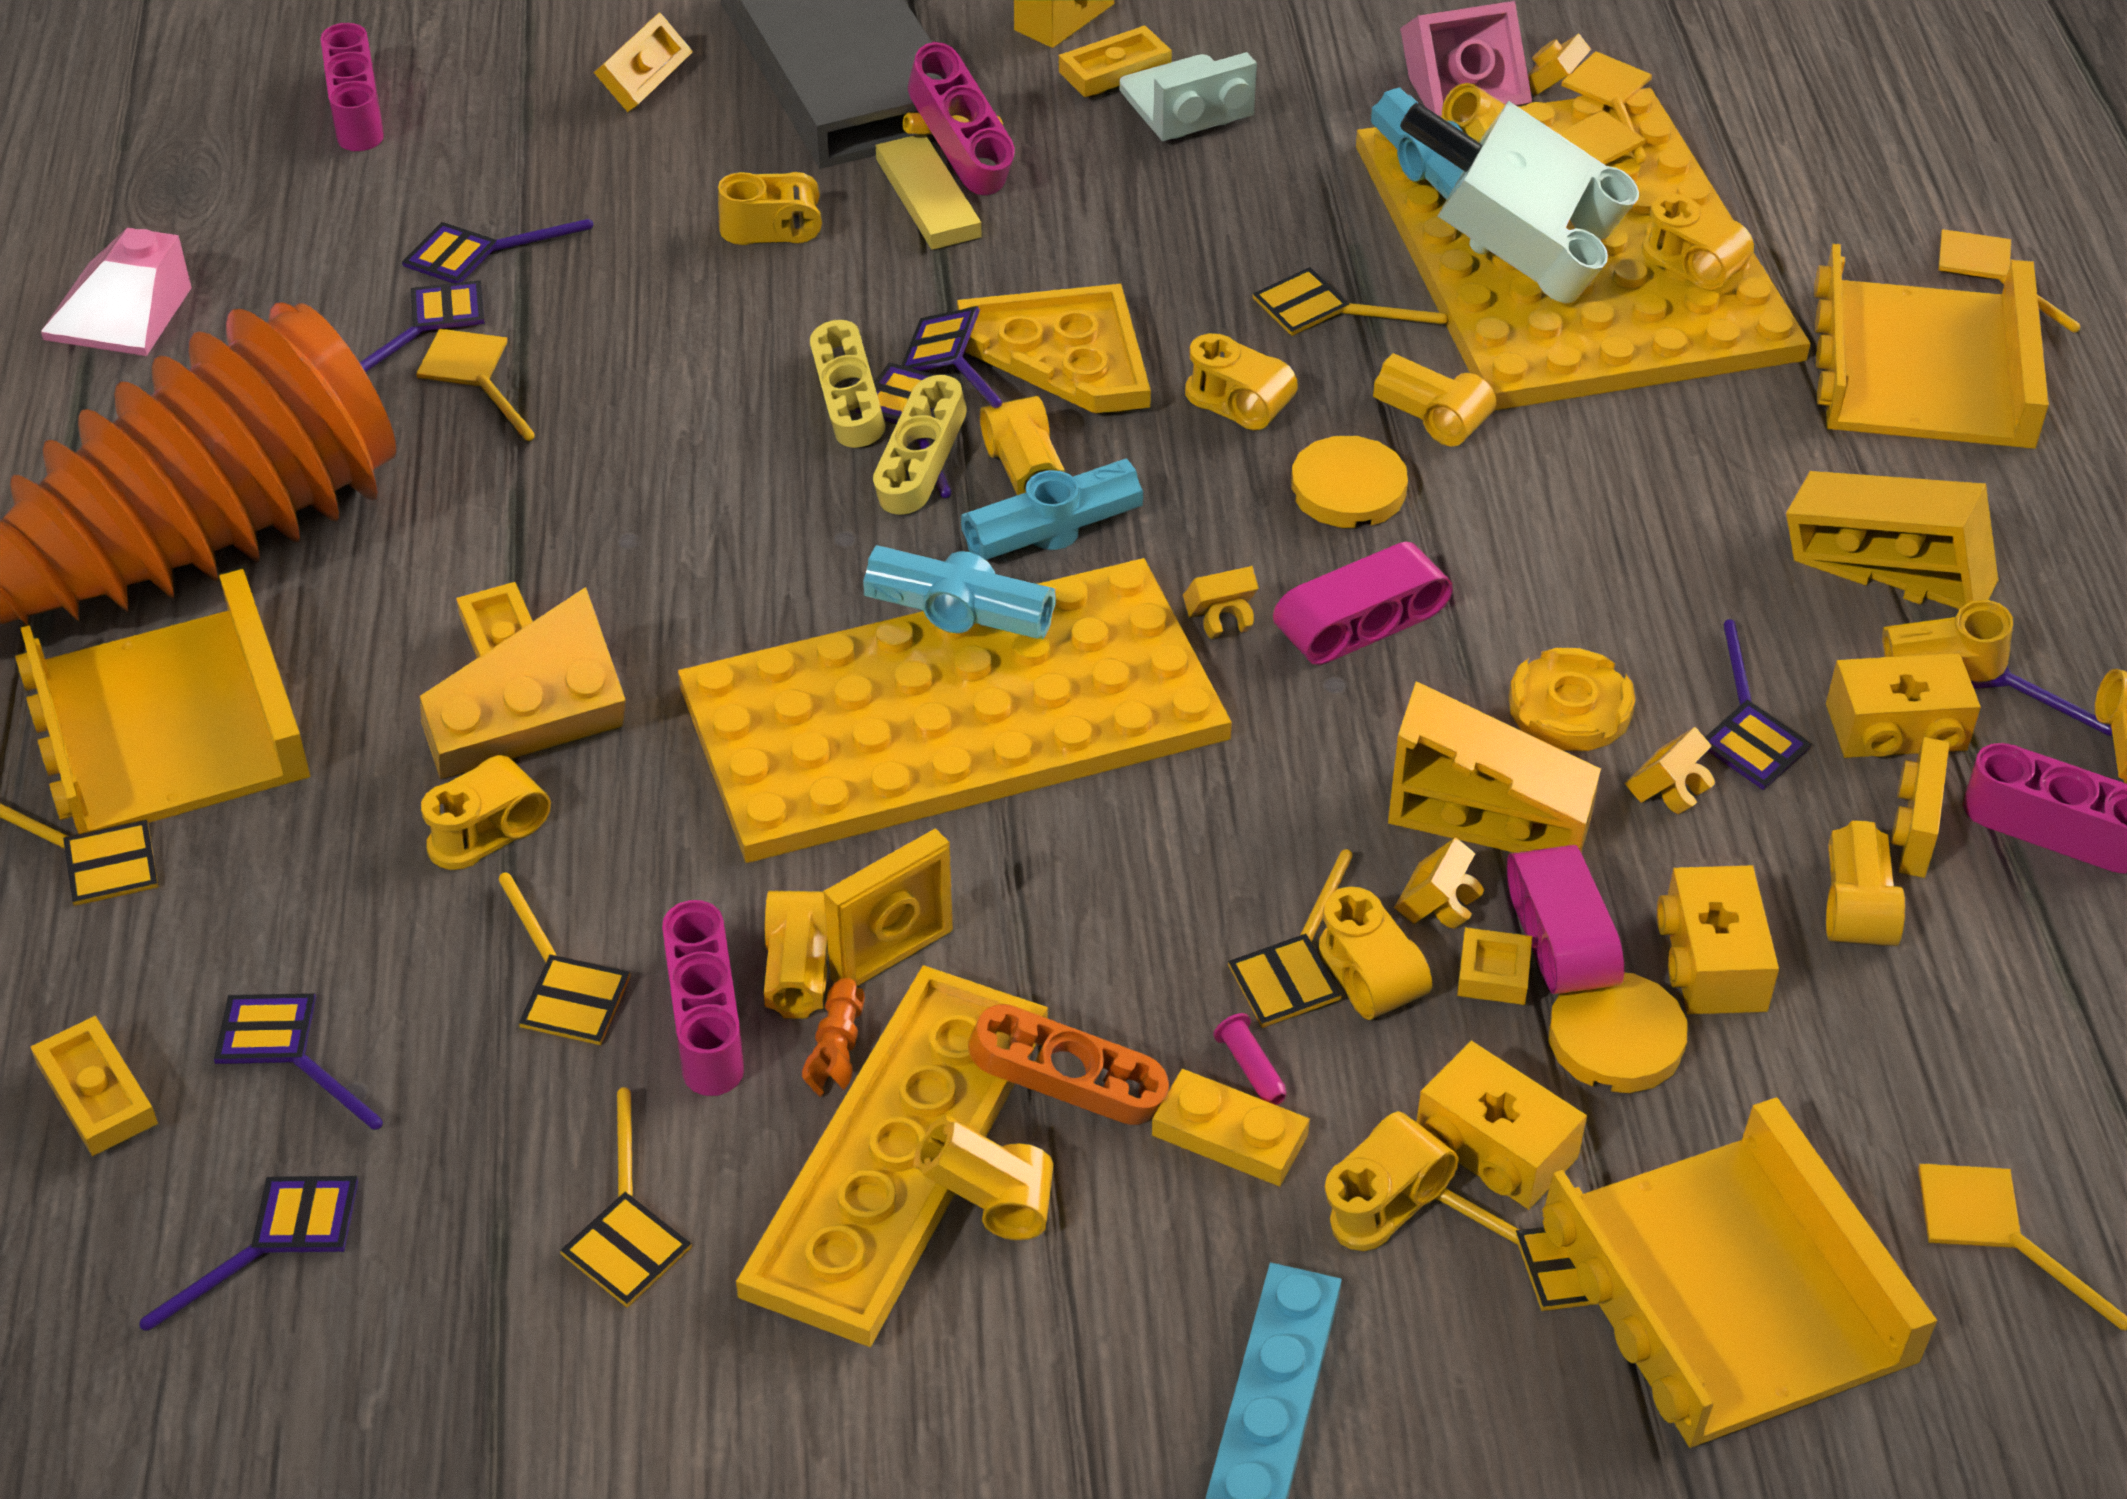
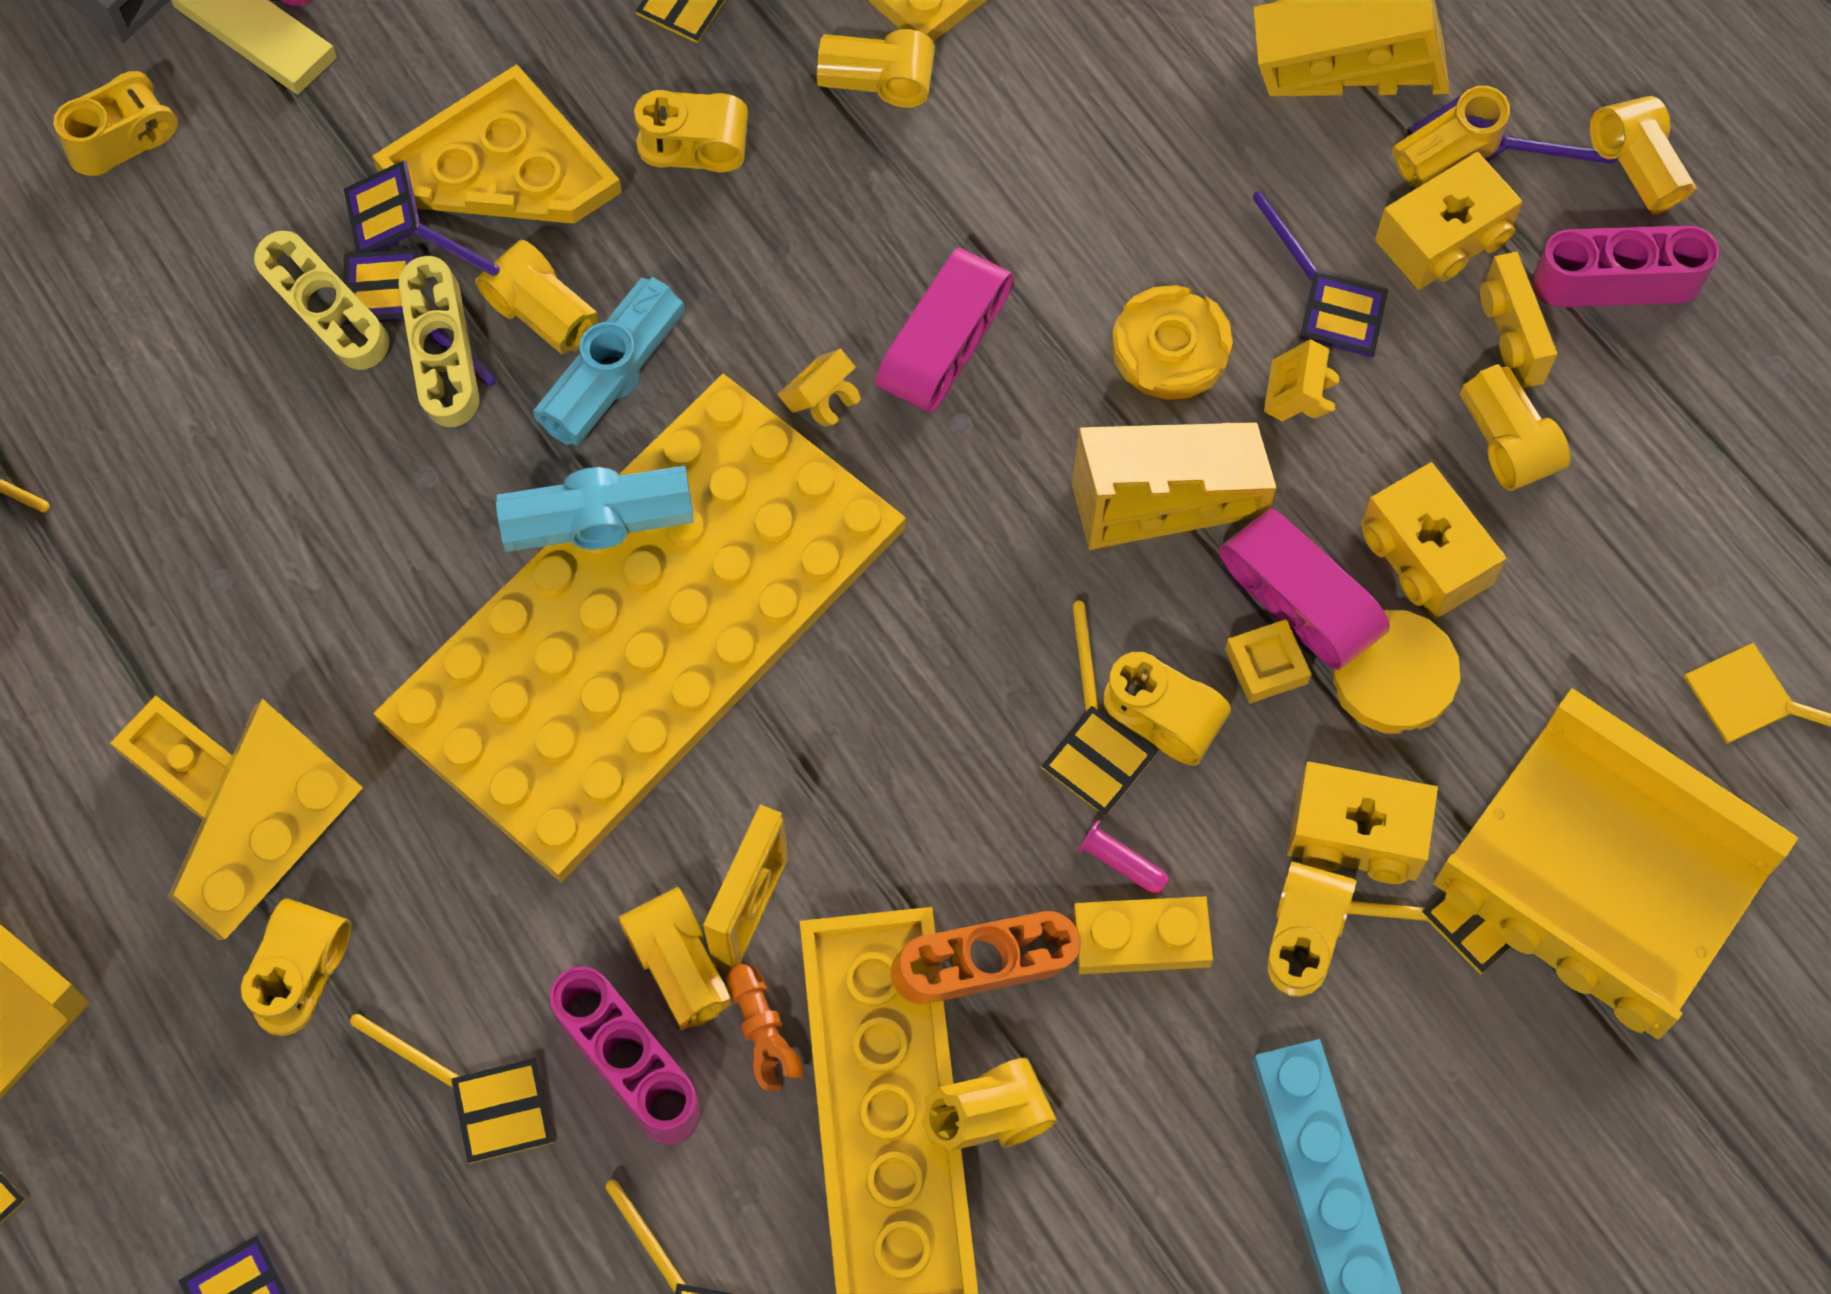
camera: 30 degrees left, 20 degrees up
(1349, 481) = (850, 193): yellow tile -> none
(1438, 884) = (1177, 602): yellow tile -> none

